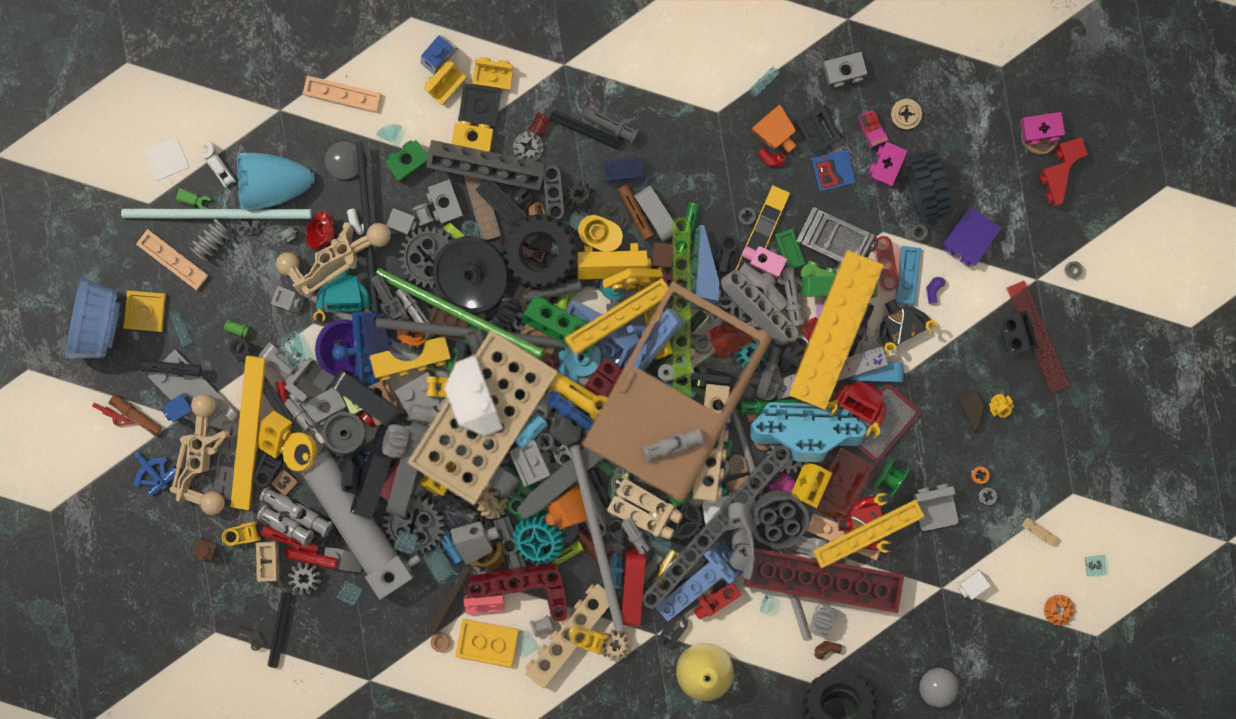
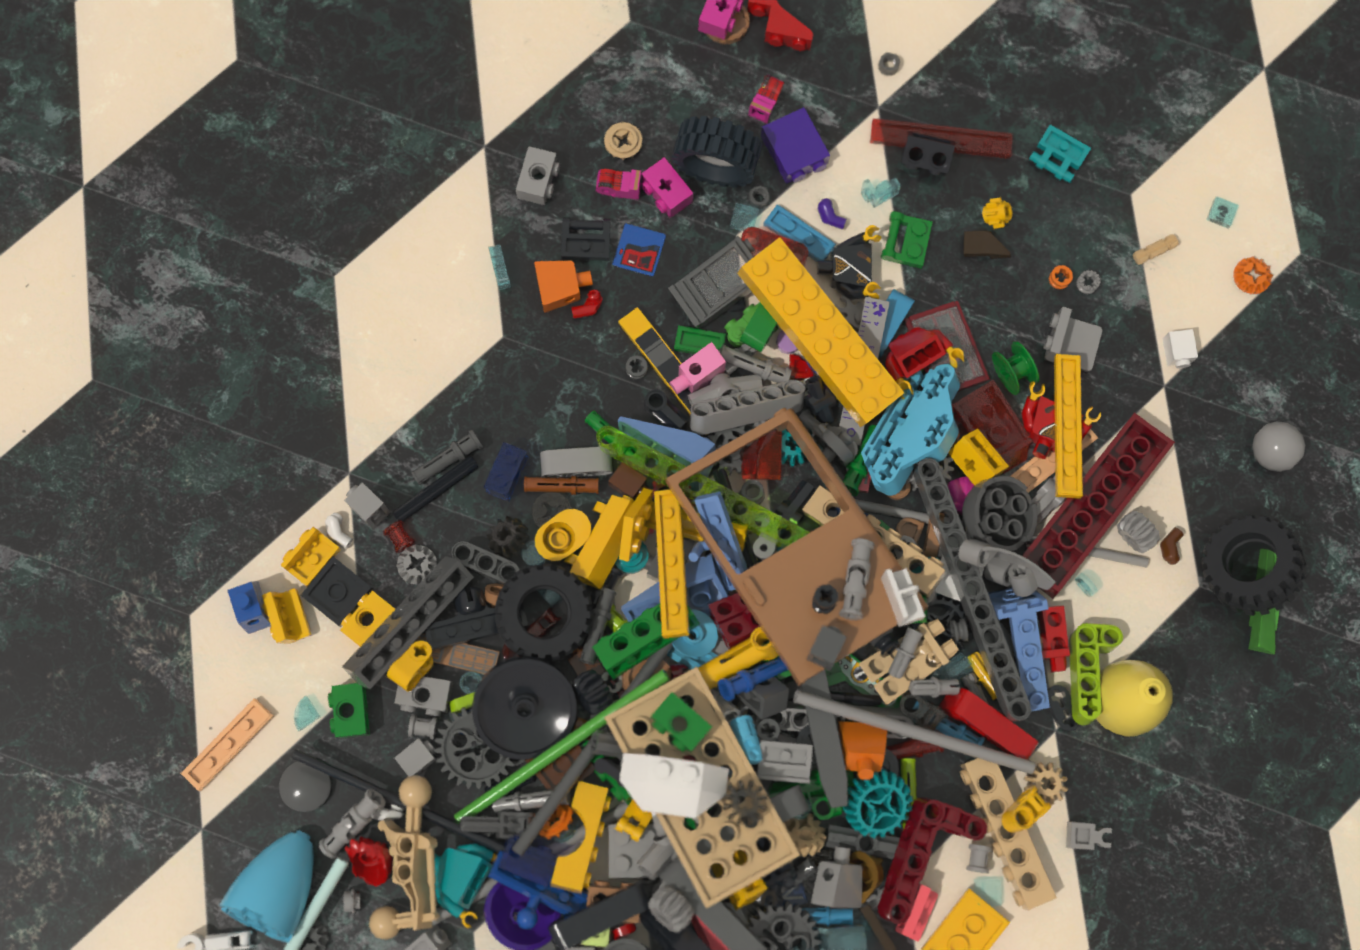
camera: 65 degrees left, 10 degrees down
(336, 205) = (352, 823): none -> light grey piece
(454, 185) = (412, 666): none -> yellow piece
(491, 447) = (745, 812): none -> clear smoke gear
(518, 79) = (334, 530): none -> white arm
(519, 370) = (673, 708): none -> green brick
(546, 91) = (366, 505): none -> light grey brick
(595, 688) = (1084, 836): none -> light grey plate
(614, 448) = (826, 647): none -> dark grey brick
(644, 489) = (887, 645): none -> black bush
(646, 504) = (905, 653): none -> light grey axle
(652, 428) = (824, 591): none -> black bush
(678, 481) = (902, 596): none -> white panel
(683, 532) = (958, 630): none -> dark grey bush
(704, 636) = (1090, 675): none -> lime beam
(897, 230) = (743, 217): none -> clear light blue tile
(947, 359) = (914, 241): none -> green plate
(971, 317) = (882, 193): none -> clear light blue bracket
(995, 197) = (766, 99): none -> leg
(1079, 427) = (1063, 148): none -> teal plate

